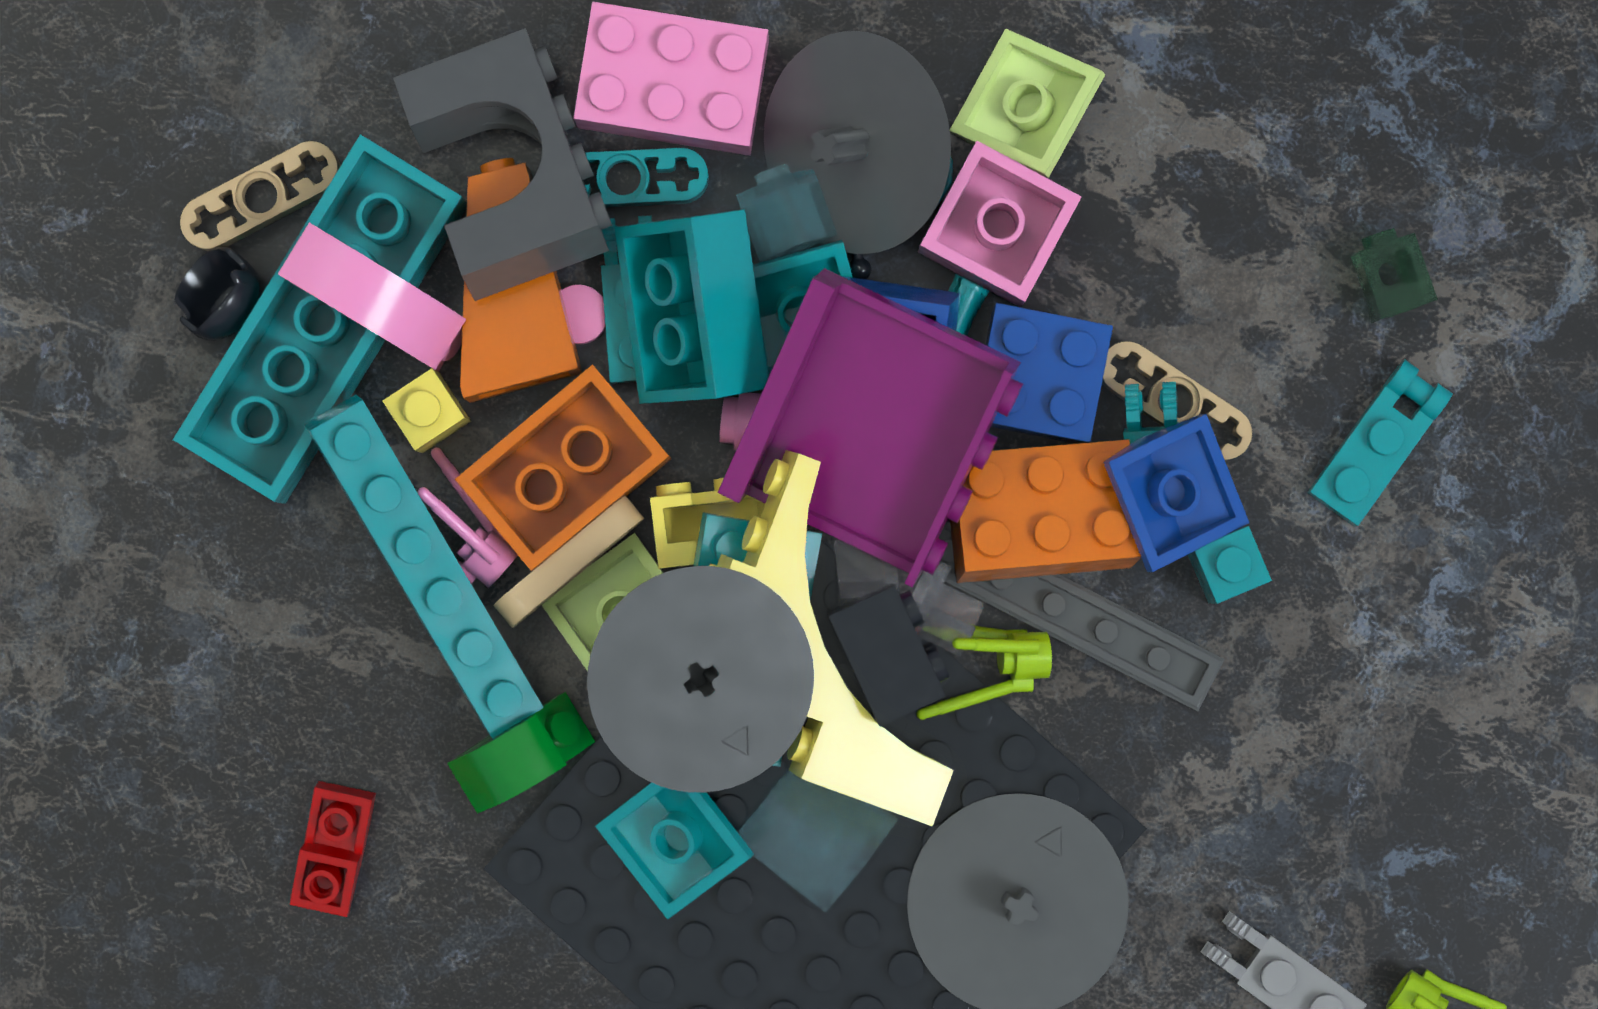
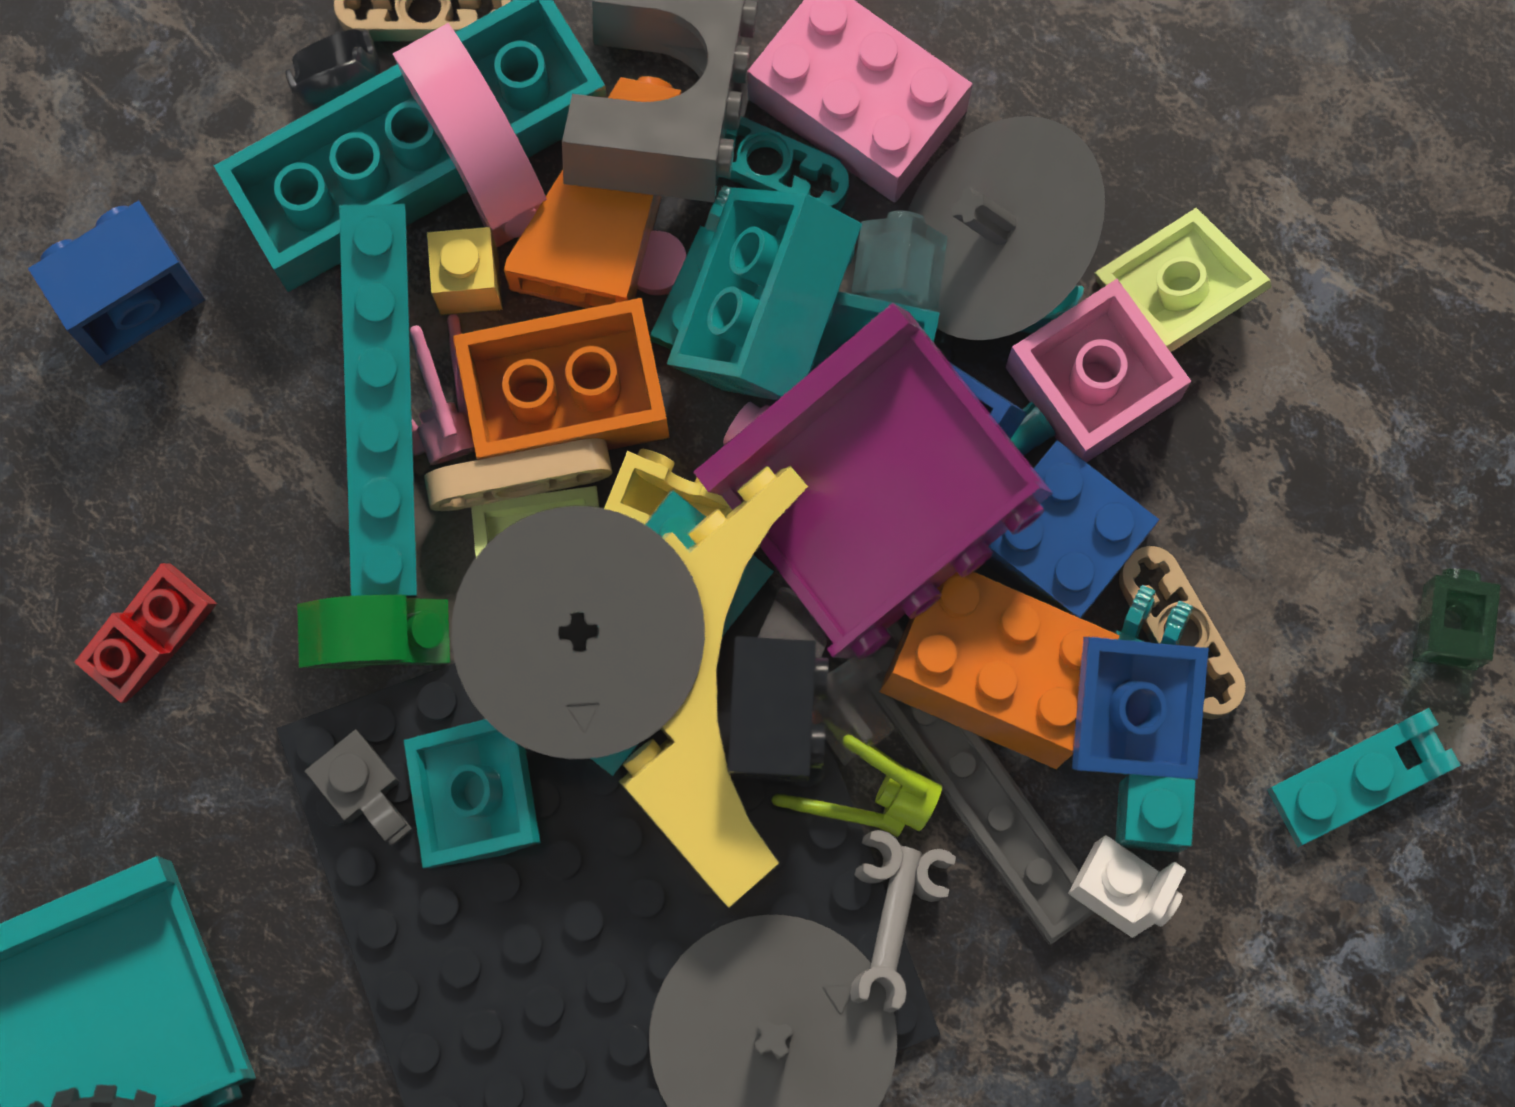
camera: 30 degrees right, 10 degrees down
(144, 578) = (116, 282): none -> blue brick
(576, 880) = (356, 783): none -> dark grey plate
(815, 836) = (610, 862): clear light blue slope -> none
(1053, 717) = (907, 875): none -> light grey bar
(1236, 635) = (1127, 888): none -> white bracket

